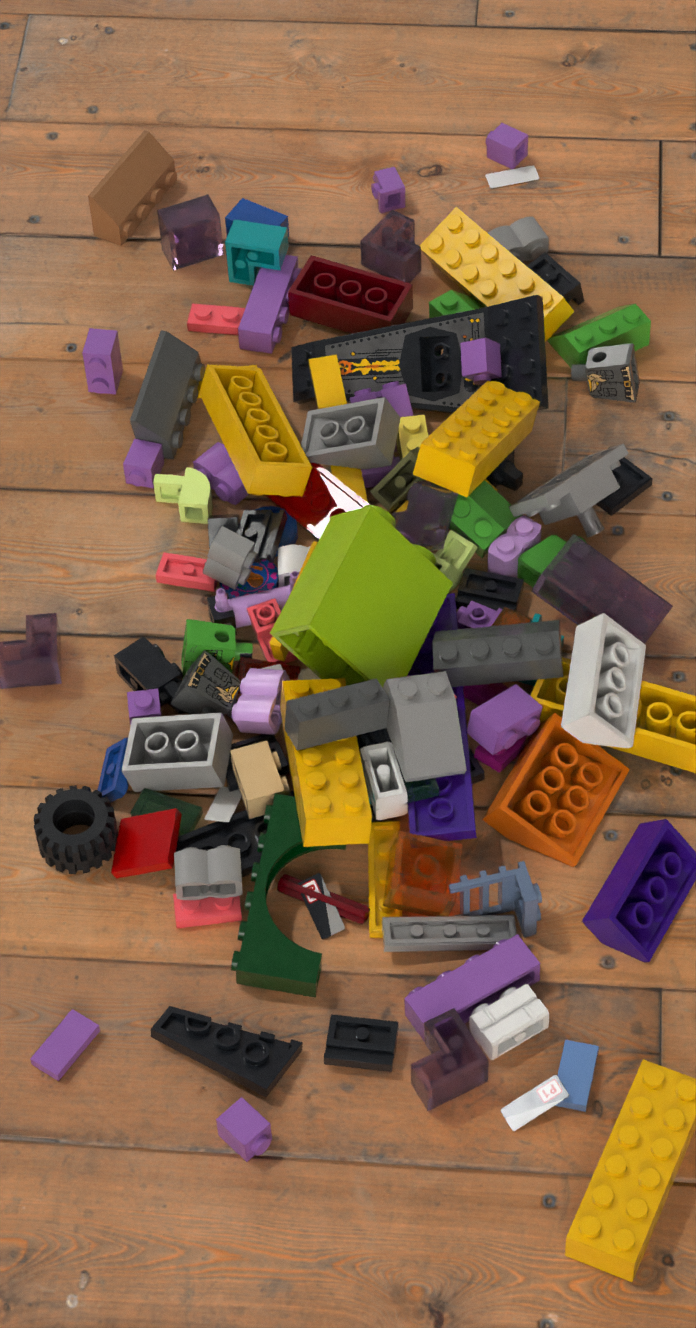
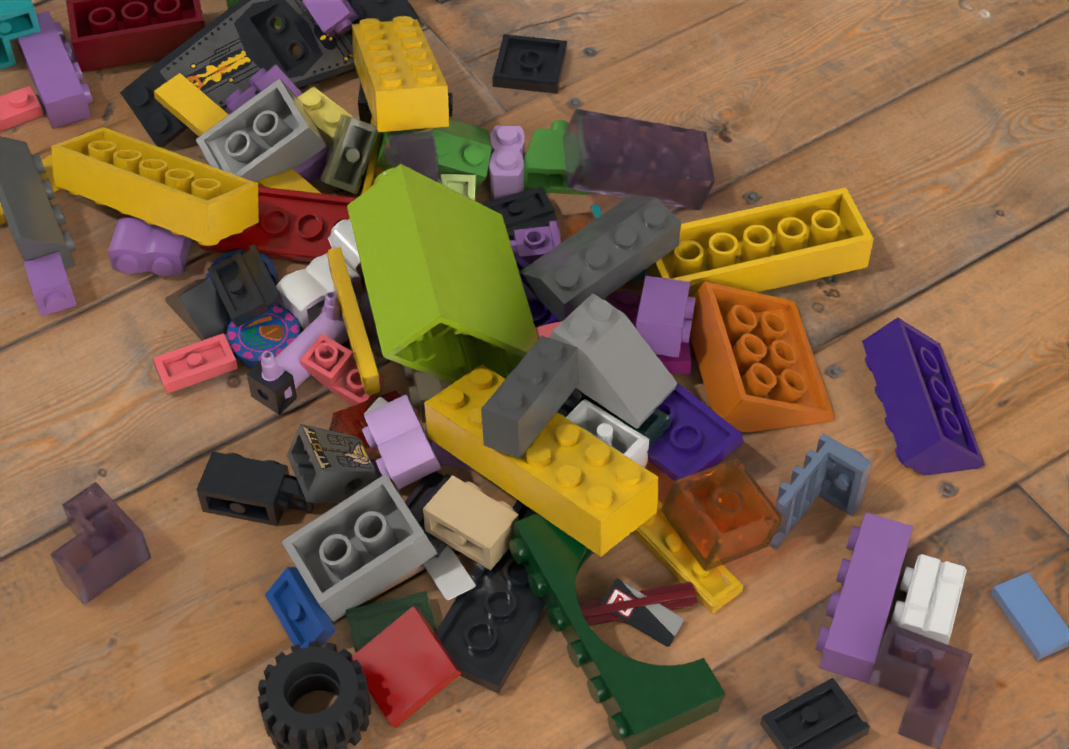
camera: 40 degrees left, 0 degrees up
(144, 704) = (273, 525): medium lavender brick -> none
(189, 491) = (127, 282): yellowish green brick -> none
(206, 911) = (524, 692): coral plate -> none
(208, 873) = (508, 652): light grey brick -> none
(216, 640) = (282, 415): bright green torso -> none
(230, 558) = (243, 319): light grey brick -> none
(446, 932) = (788, 558): light grey tile -> none
(534, 1102) = (1026, 668): sticker -> none
(575, 491) = (522, 78): light grey brick -> none
(603, 684) = (726, 229): white slope -> none

